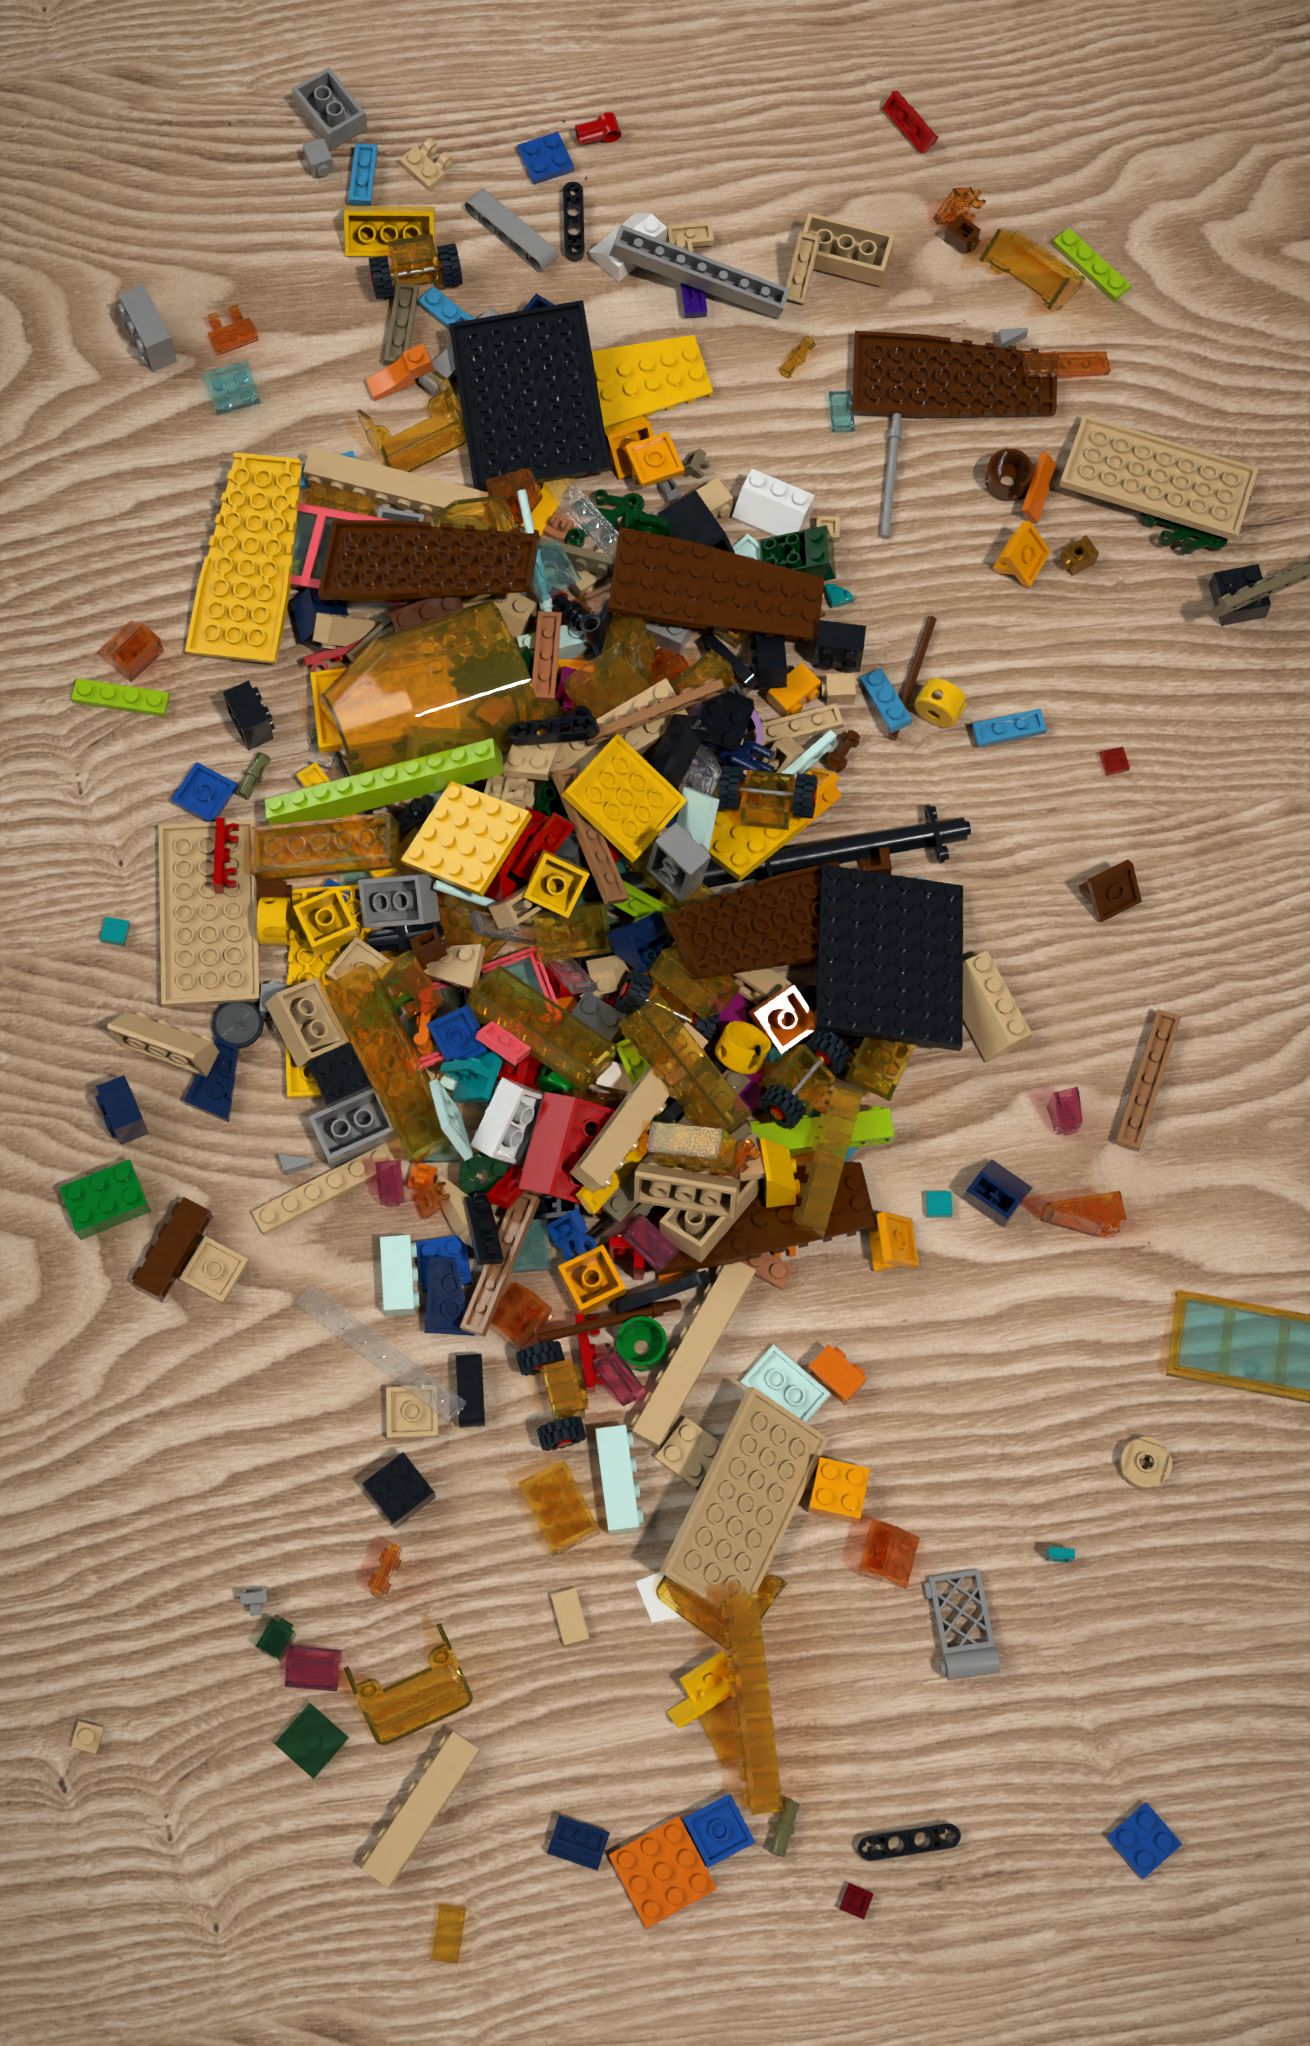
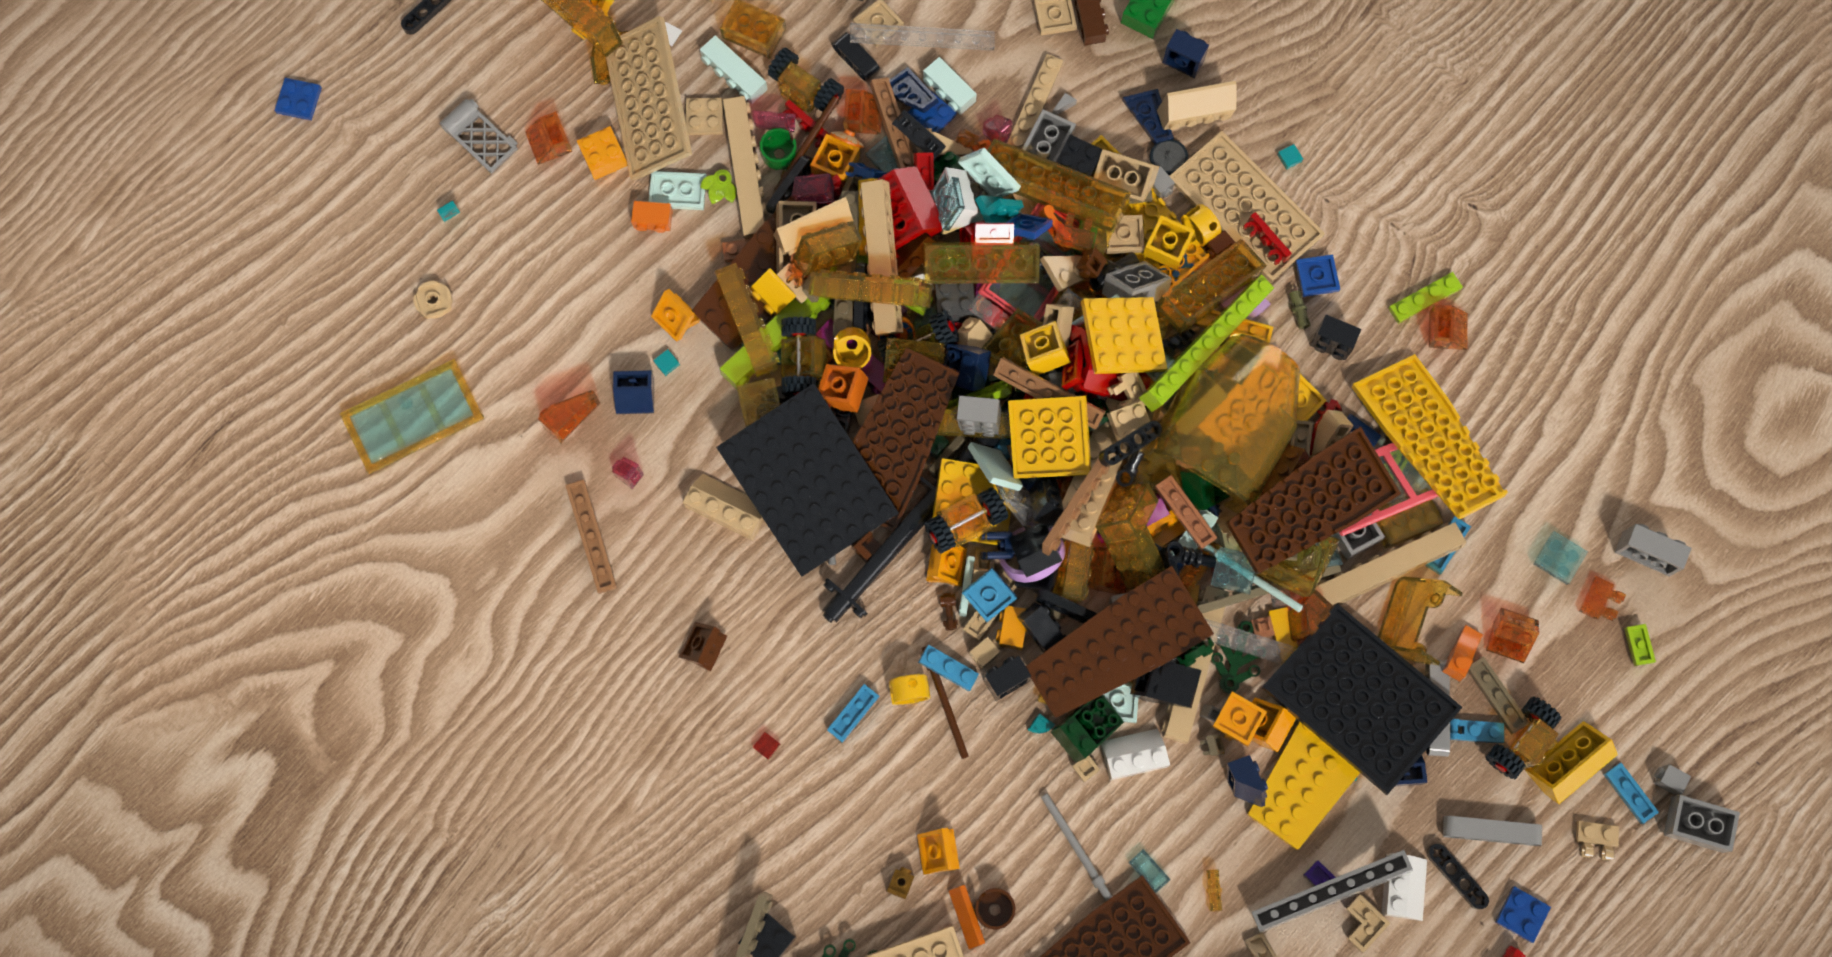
camera: 145 degrees right, 5 degrees up
(235, 273) = (1640, 645): none -> lime plate
(339, 358) = (1513, 635): none -> clear orange slope
(525, 1101) = (950, 203): none -> clear light blue plate
(561, 1293) = (847, 137): none -> dish
(694, 410) = (1246, 781): none -> dark blue slope
(740, 1351) = (719, 189): none -> lime plate
(796, 725) = (989, 594): none -> dark azure tile

